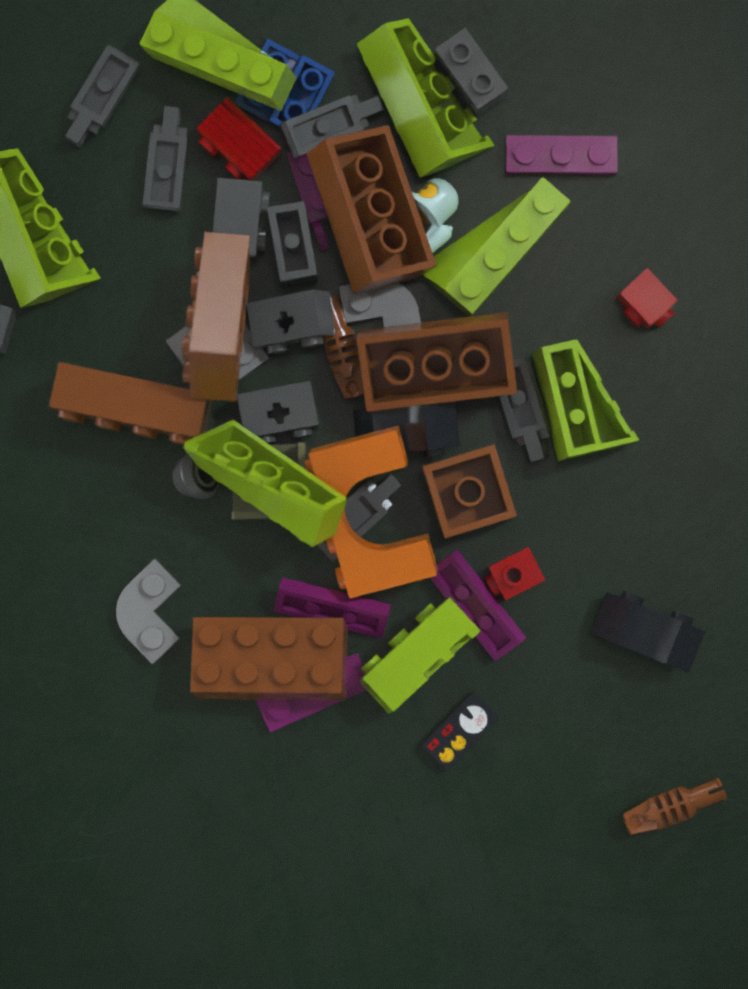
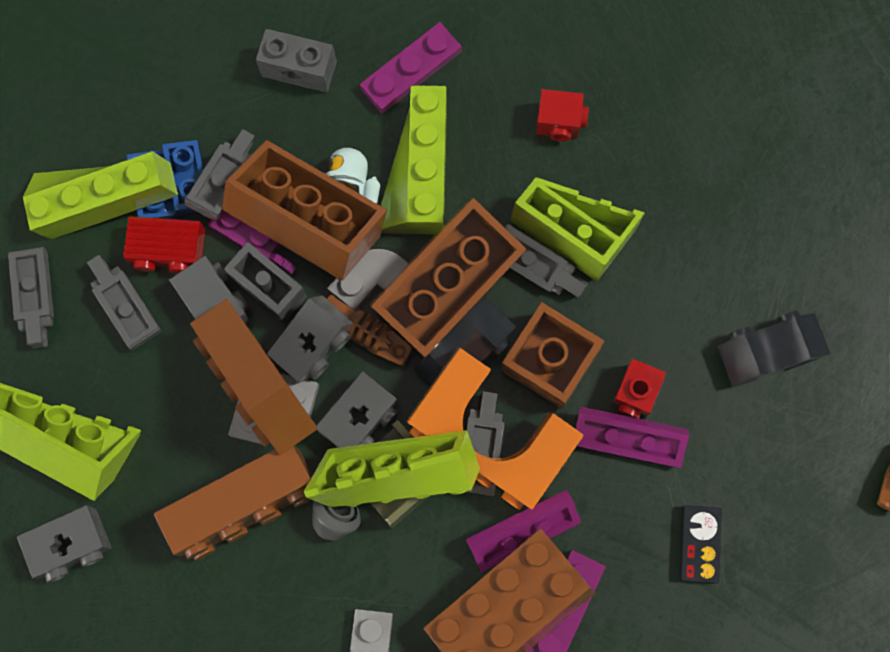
camera: 30 degrees left, 10 degrees down
(417, 654) = (620, 509): lime wedge -> none
(420, 99) = (274, 107): lime wedge -> none

